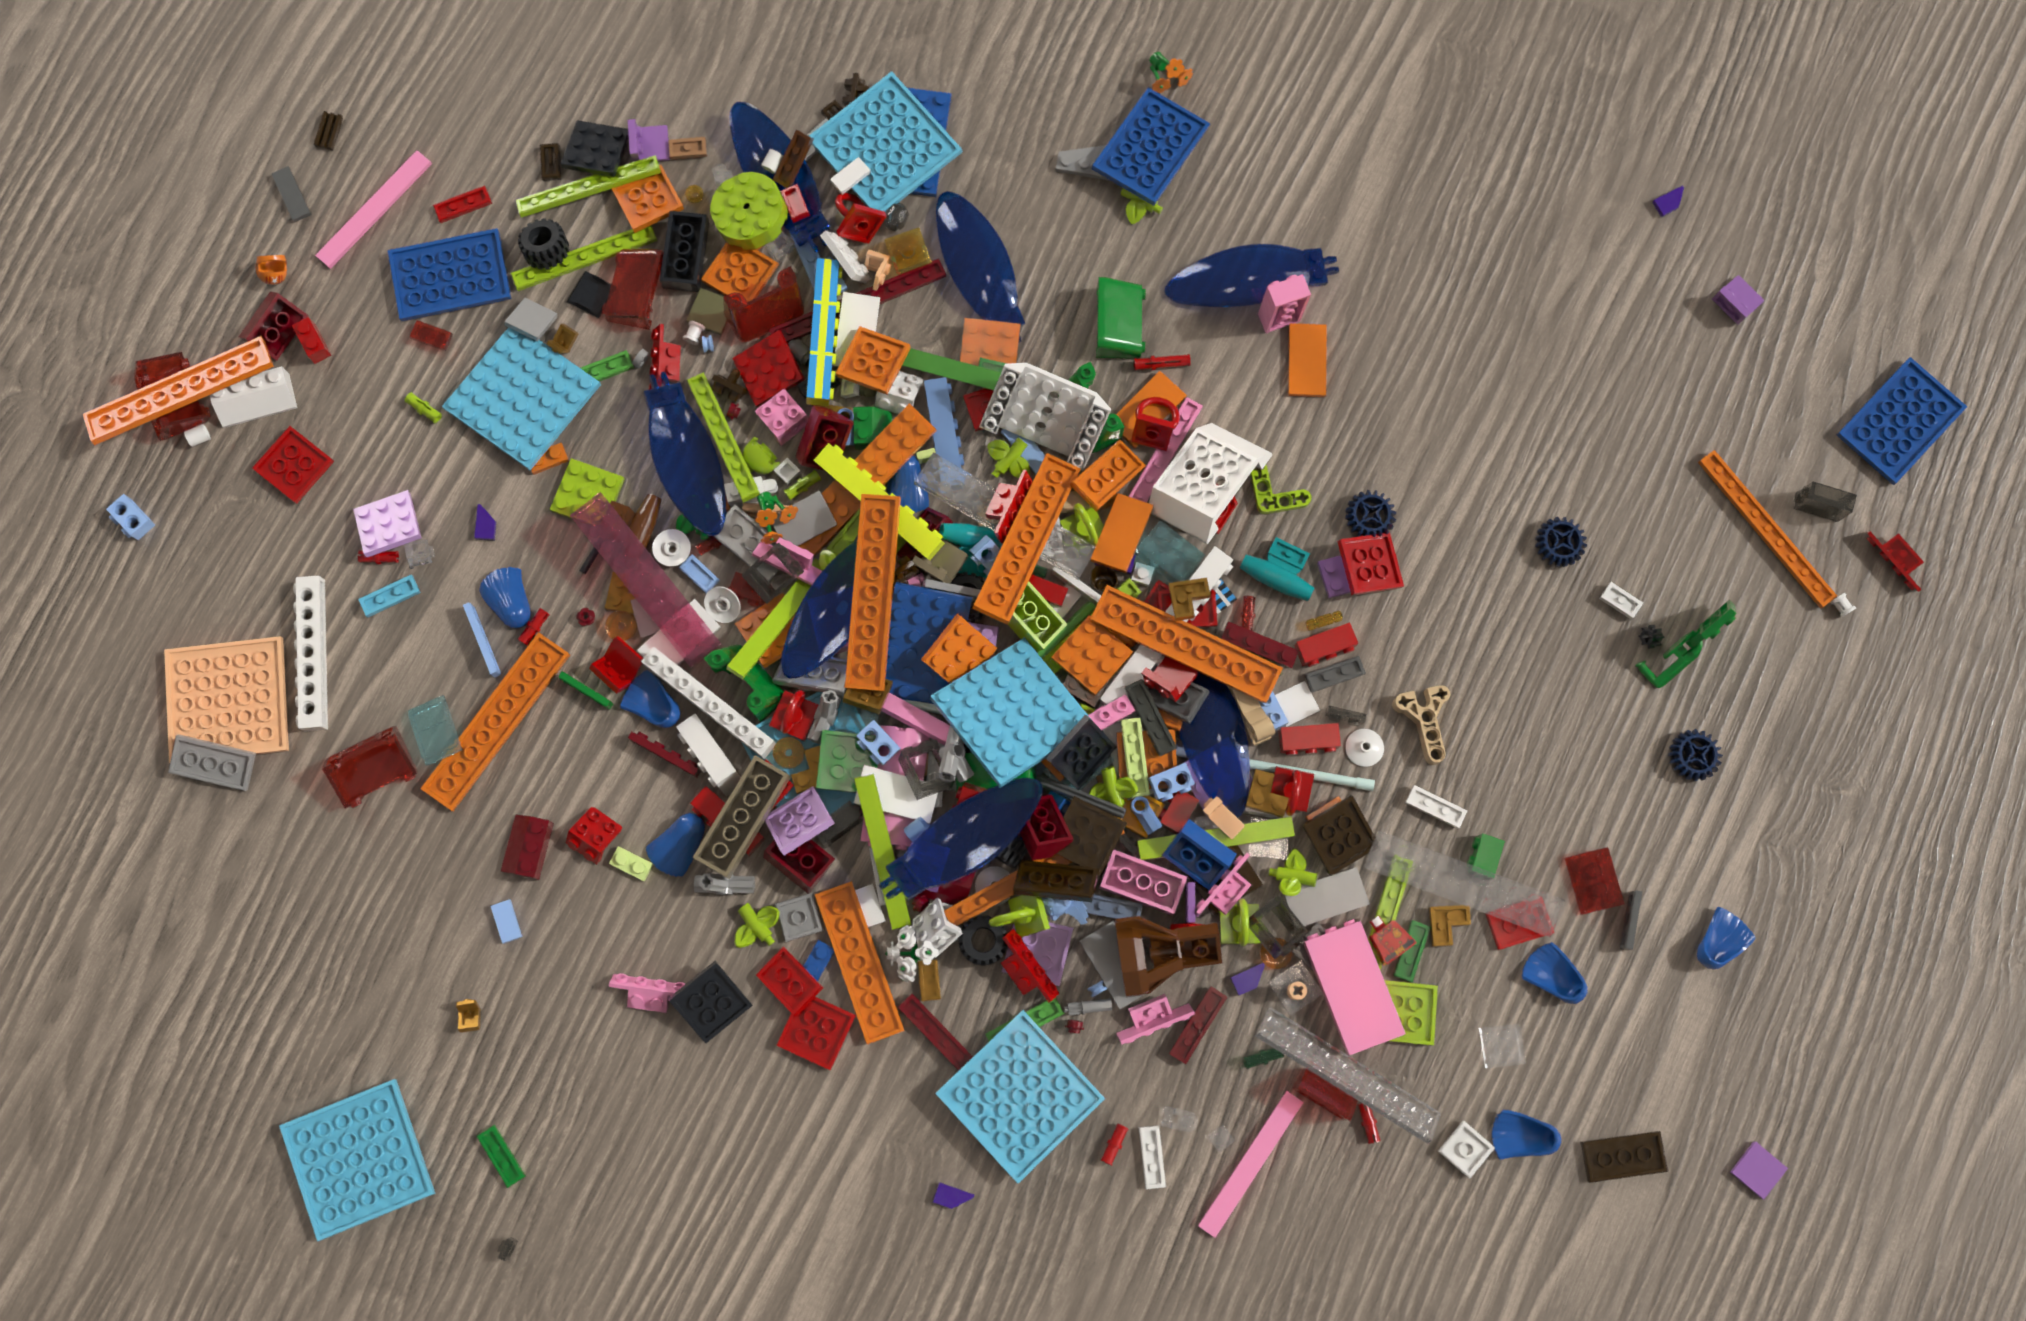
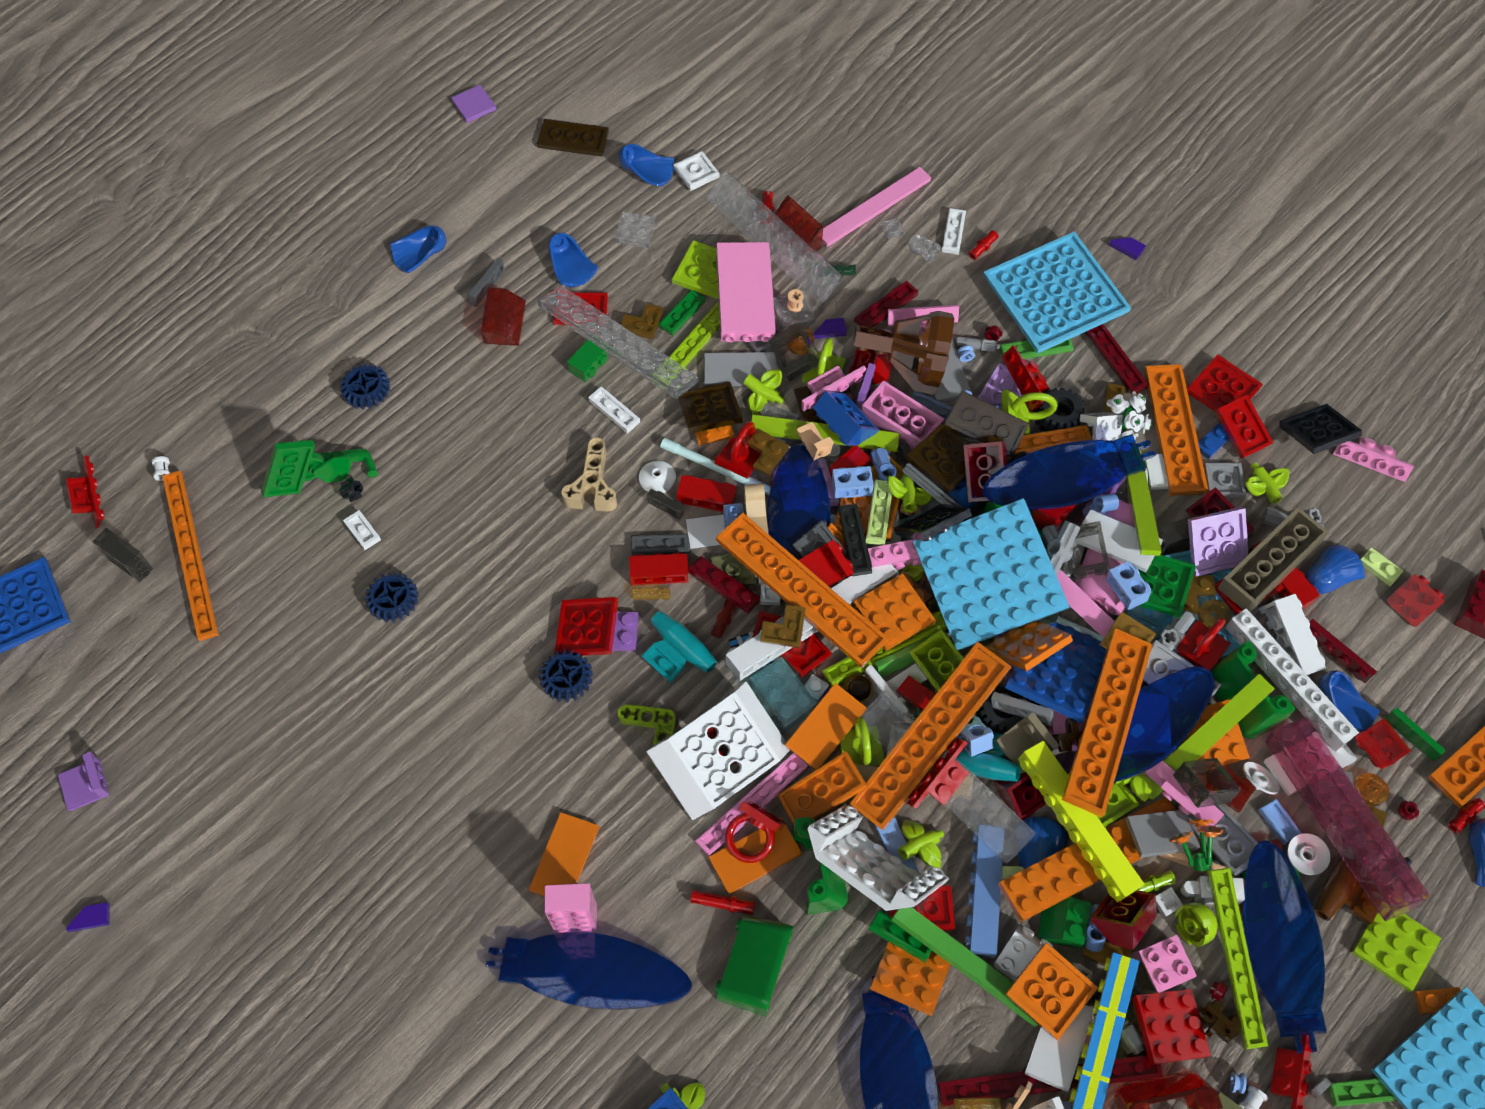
camera: 160 degrees left, 15 degrees down
(1389, 940) = (699, 317): torso -> none

